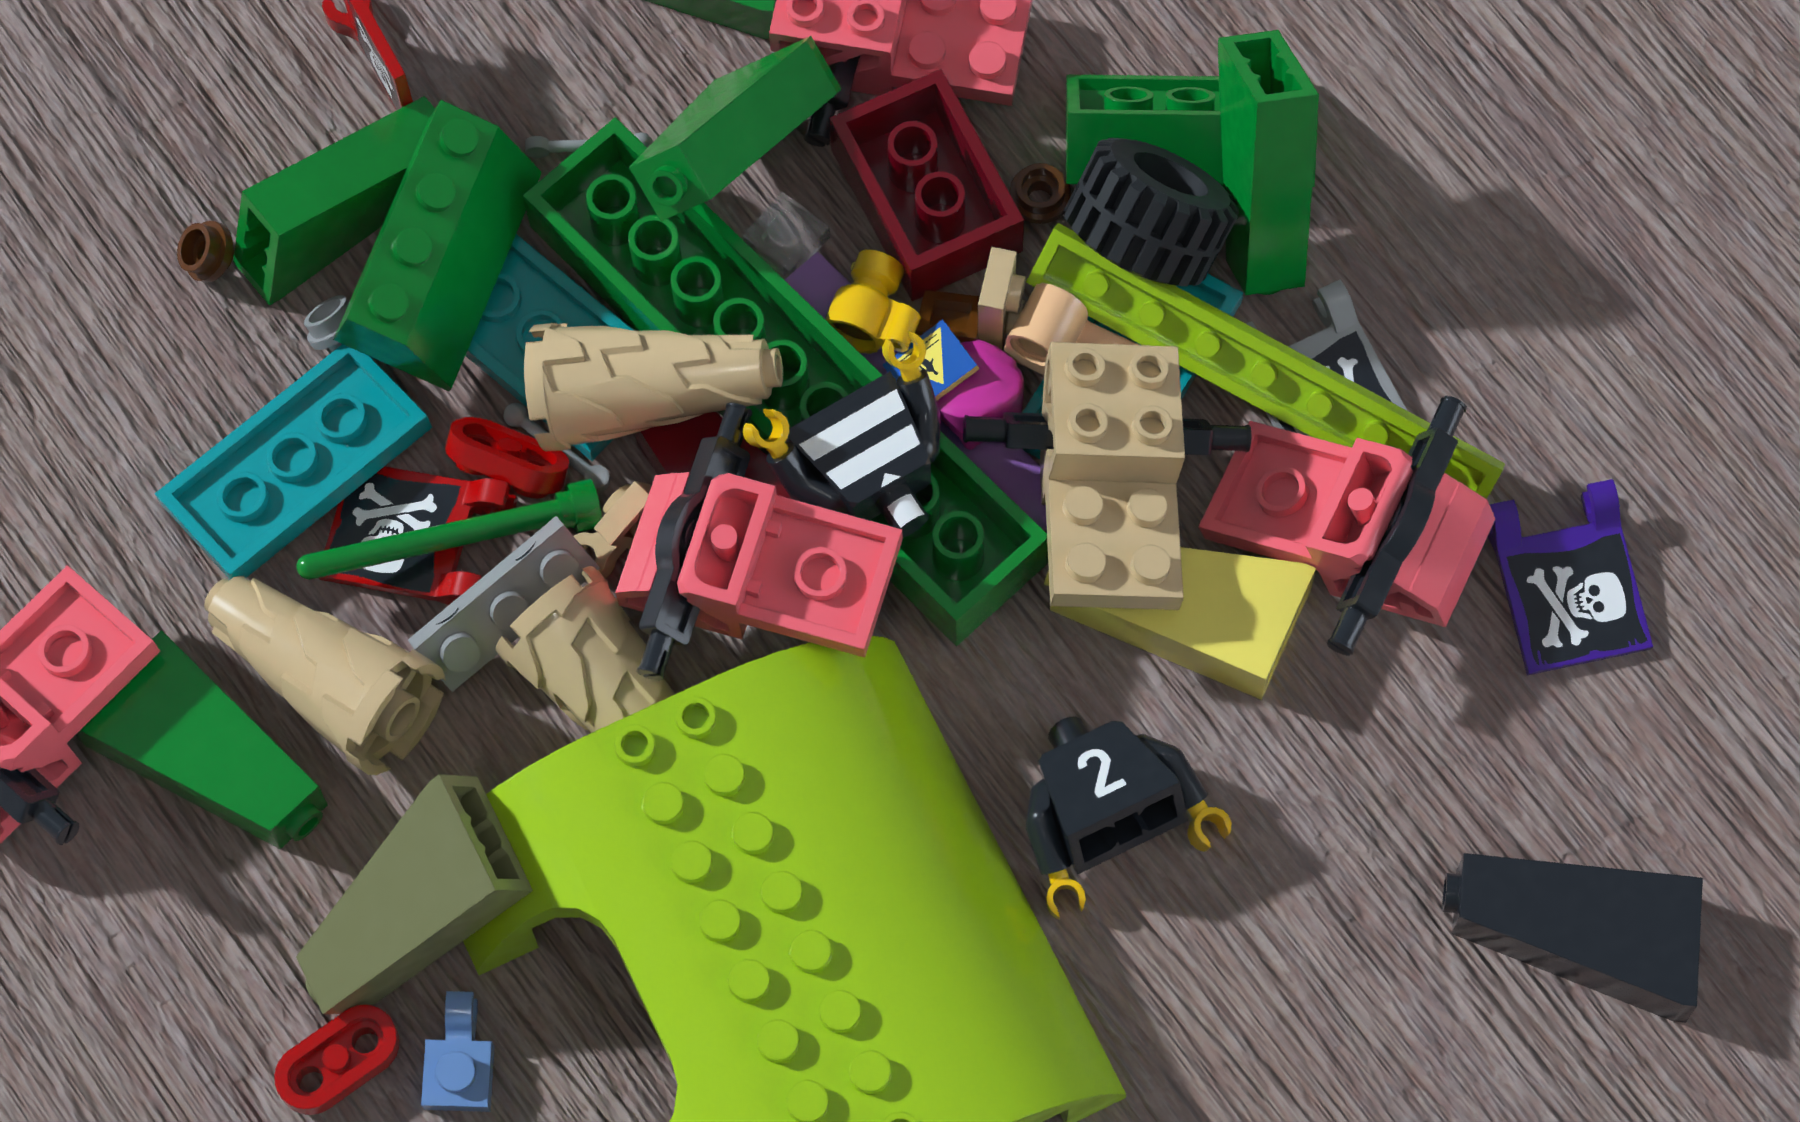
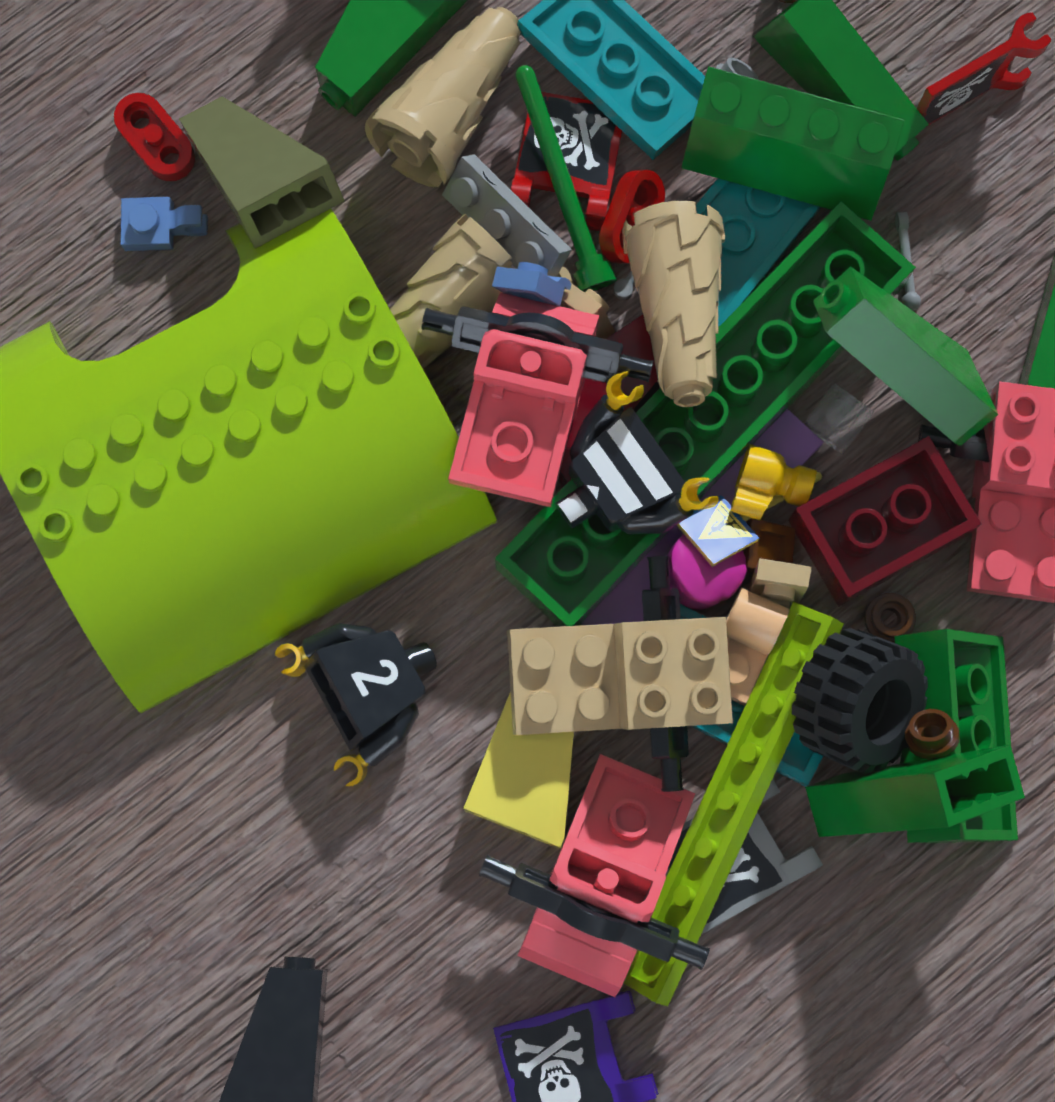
camera: 85 degrees right, 10 degrees up
(609, 550) = (531, 282): none -> medium blue plate
(1182, 133) = (932, 734): none -> reddish brown plate

